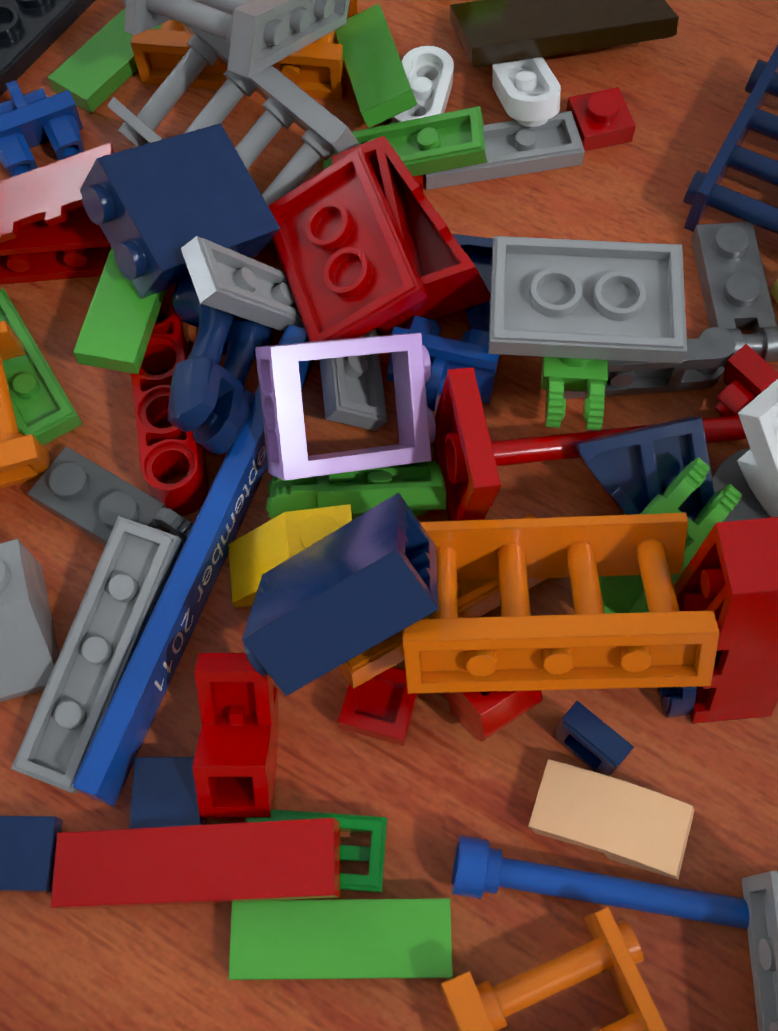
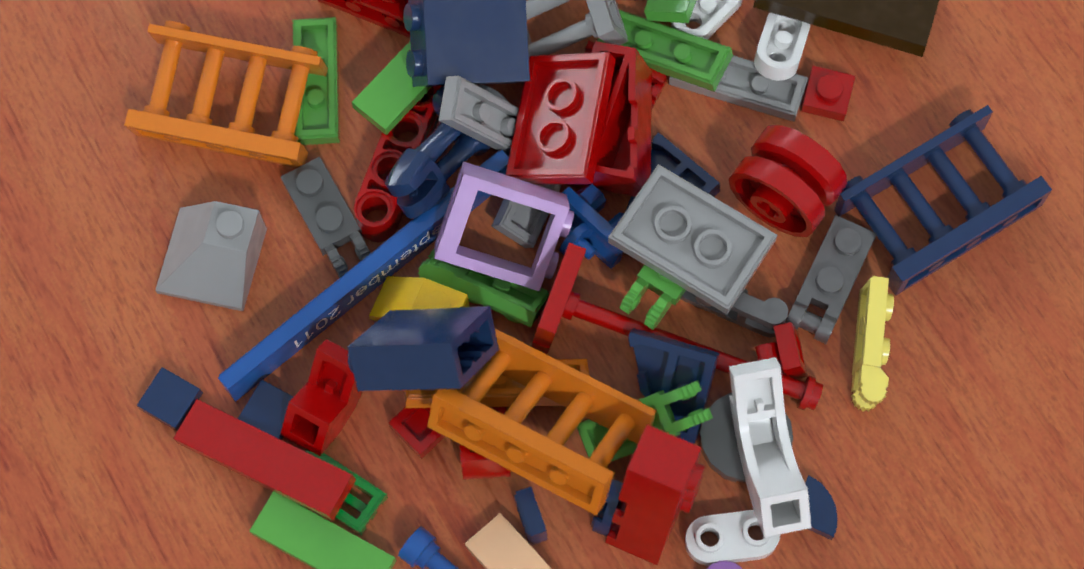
camera: 30 degrees right, 5 degrees up
(97, 651) = (273, 301): light grey tile -> none
(638, 189) = (788, 180): none -> red wheel

